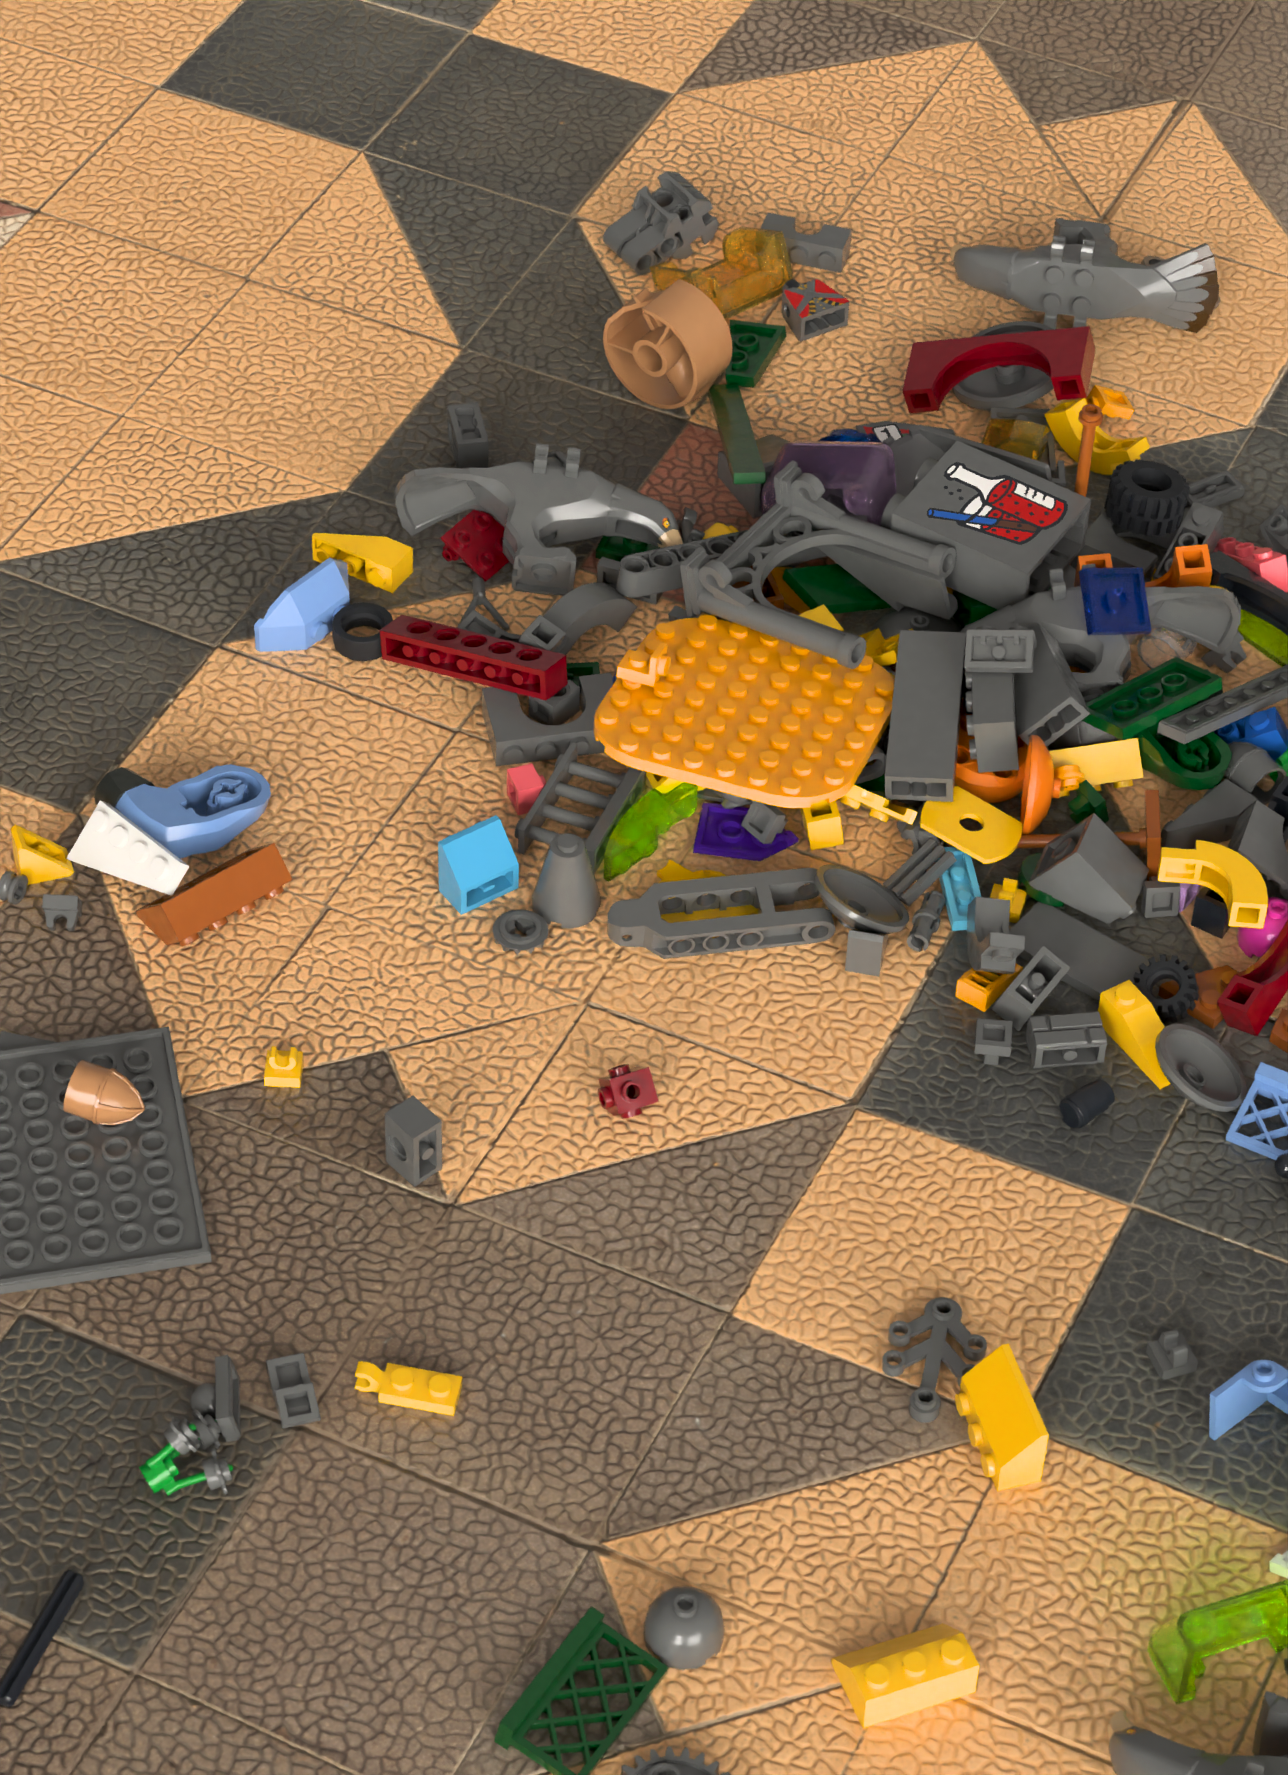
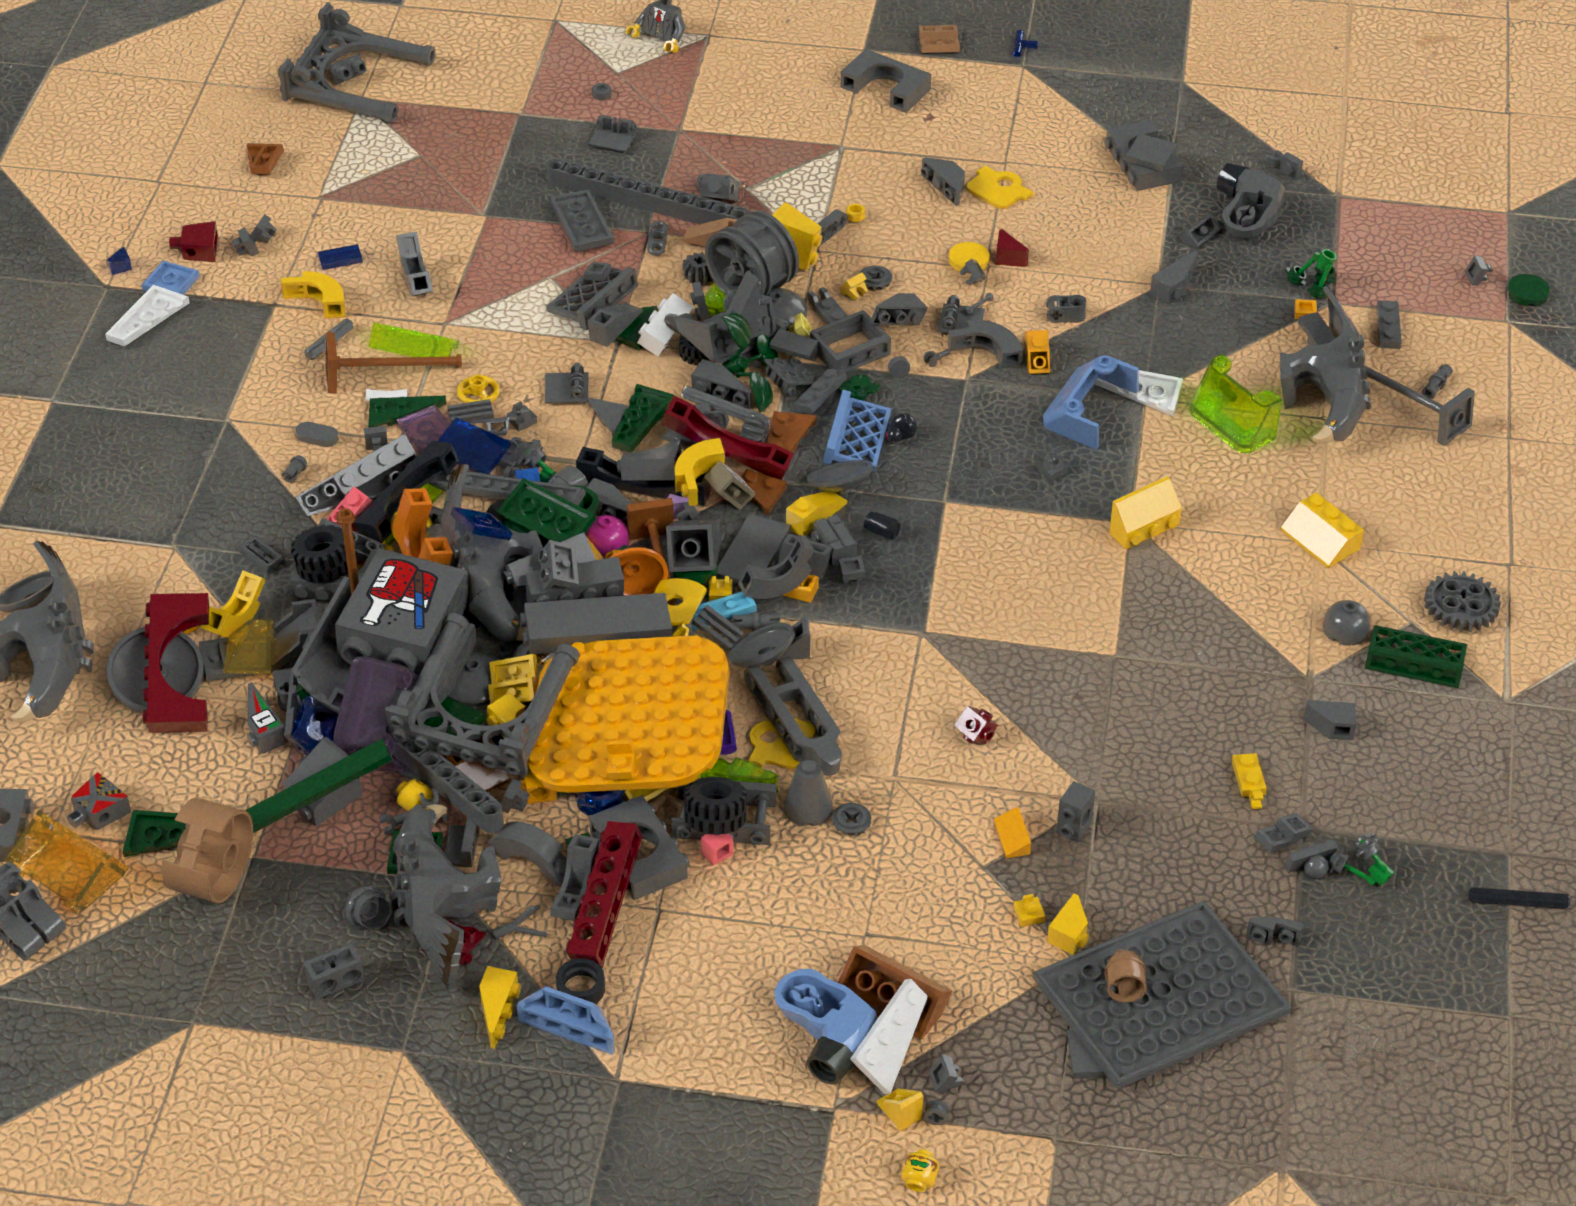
camera: 105 degrees left, 0 degrees up
(122, 1302) = (1269, 928): none -> dark grey slope
(231, 1093) = (1069, 927): none -> yellow slope
(428, 1089) = (1013, 833): none -> light orange slope
(477, 865) = (812, 847): slope -> none
(479, 1525) = (1332, 719): none -> dark grey slope
(554, 786) = (715, 805): none -> black tyre
(943, 1317) = (1079, 560): dark grey plant -> none
(1130, 800) = (608, 534): none -> dark pink cylinder
(1173, 970) = (779, 490): black tyre -> none
(1201, 932) = (729, 485): none -> dark tan brick

